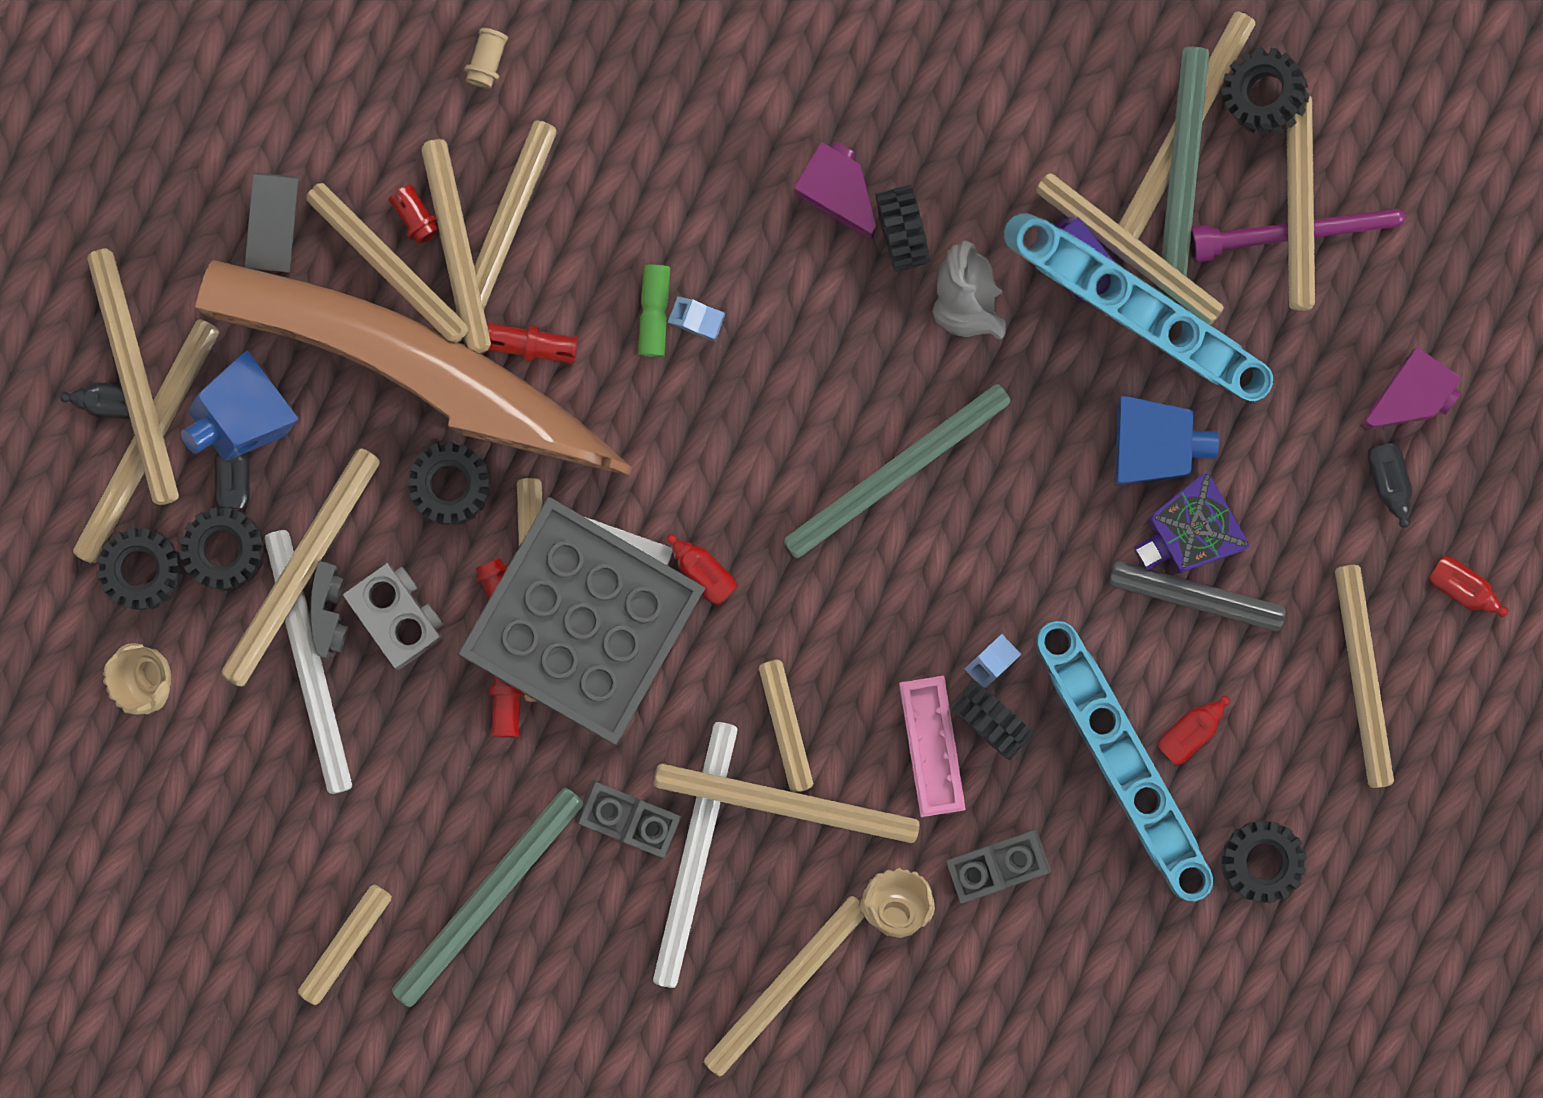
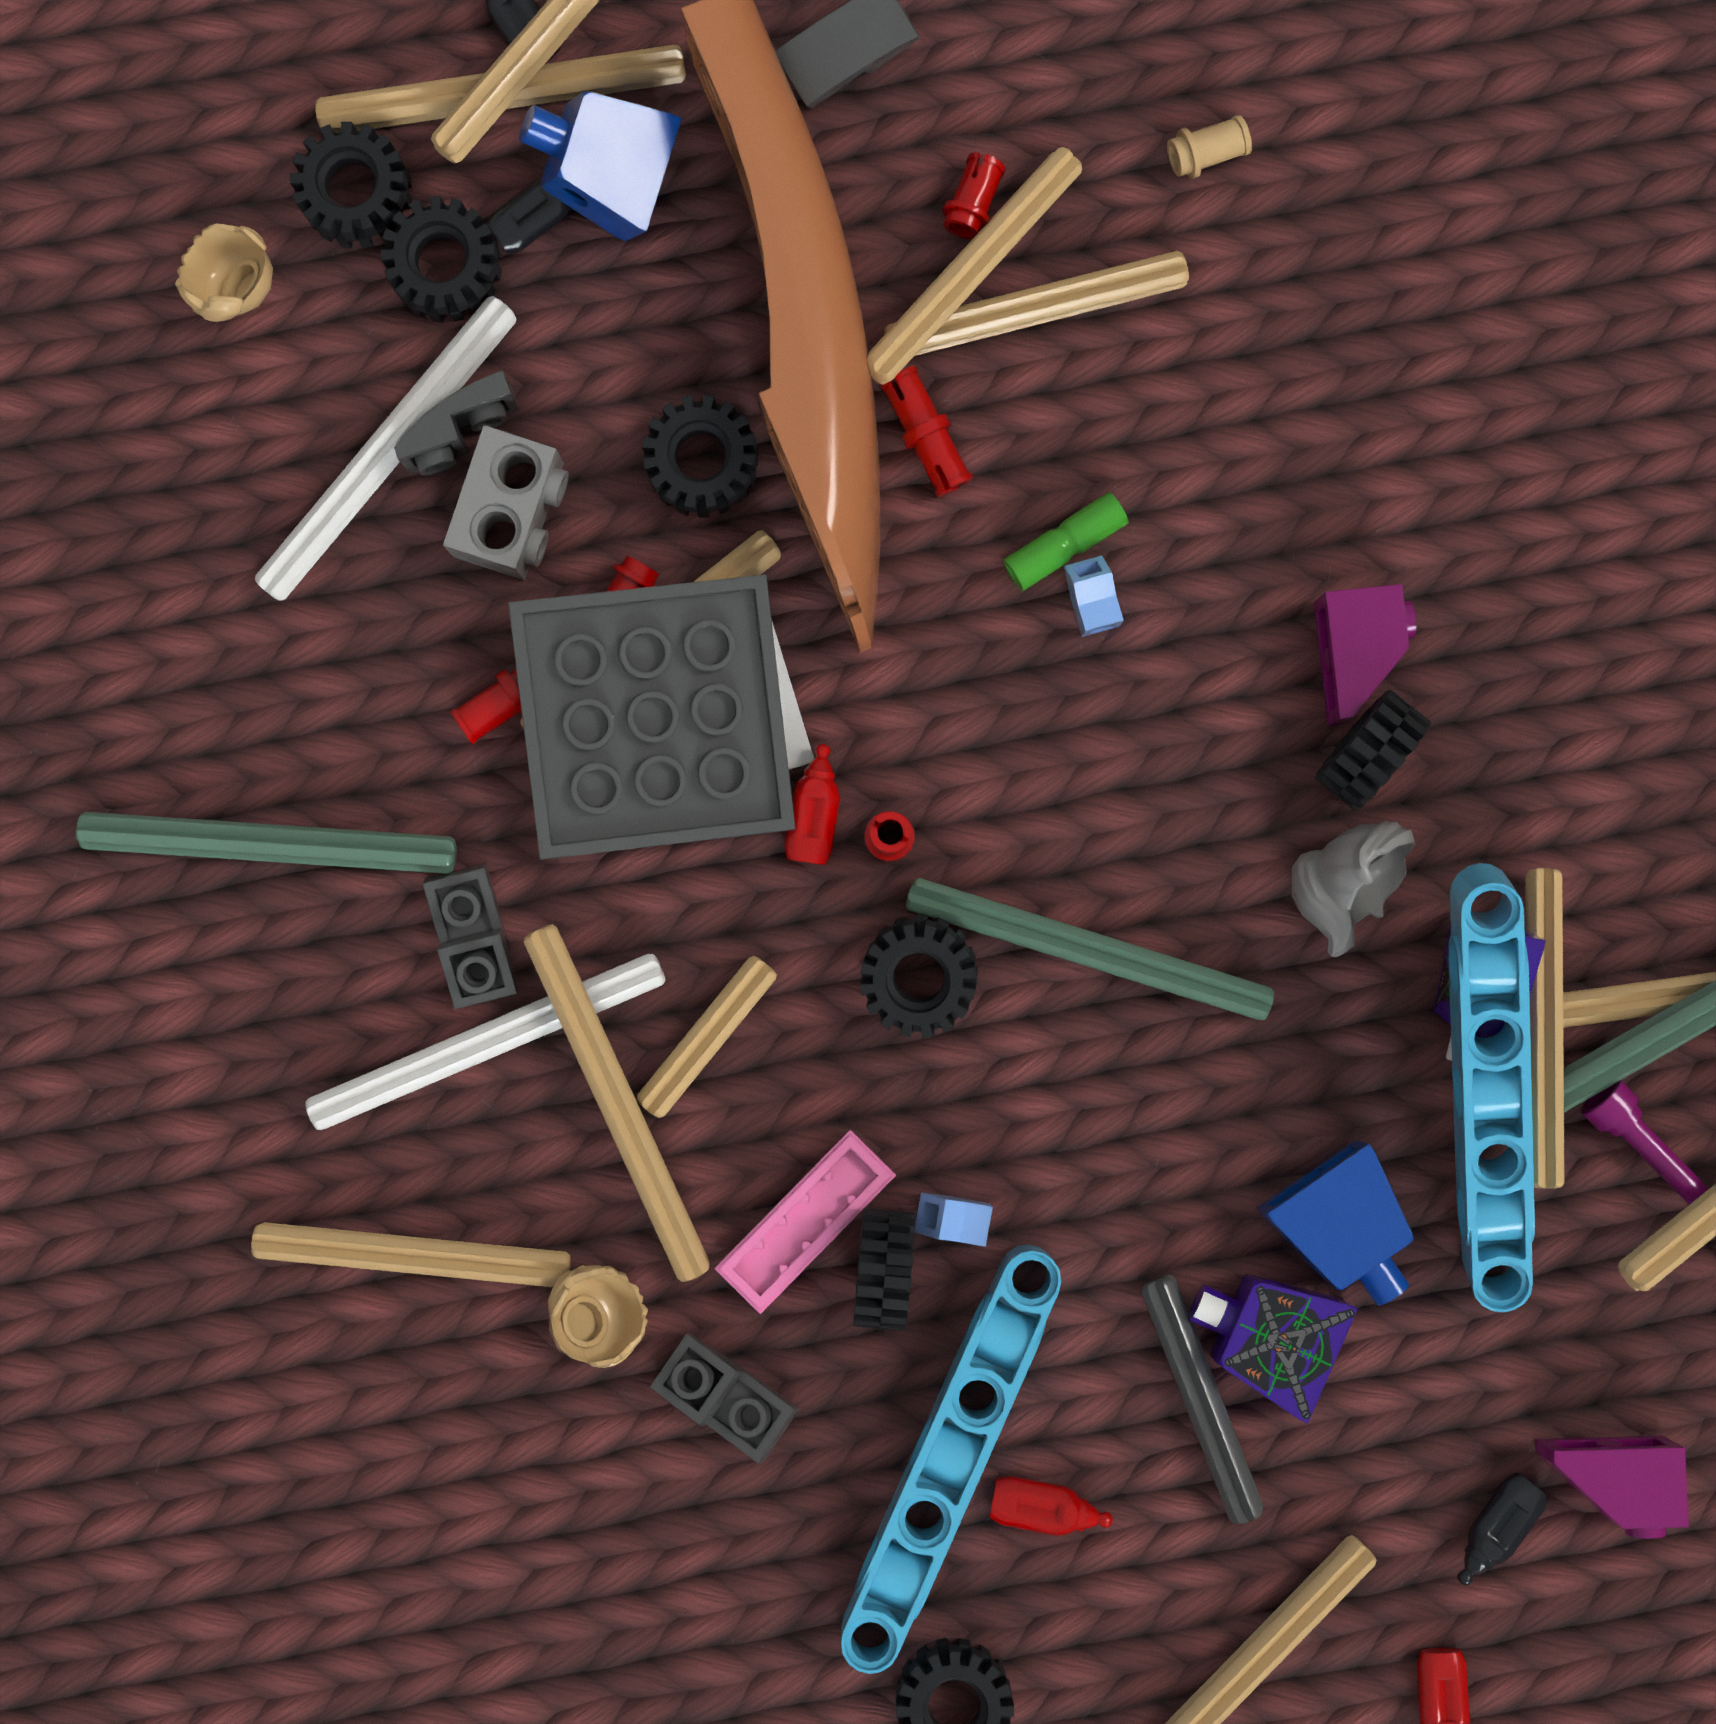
camera: 50 degrees right, 0 degrees up
(300, 567) = (479, 357): tan axle -> none
(344, 944) = (97, 722): tan axle -> none
(387, 263) = (895, 202): tan axle -> none
(752, 548) = (884, 851): none -> red pin
(860, 597) = (914, 1013): none -> black tyre

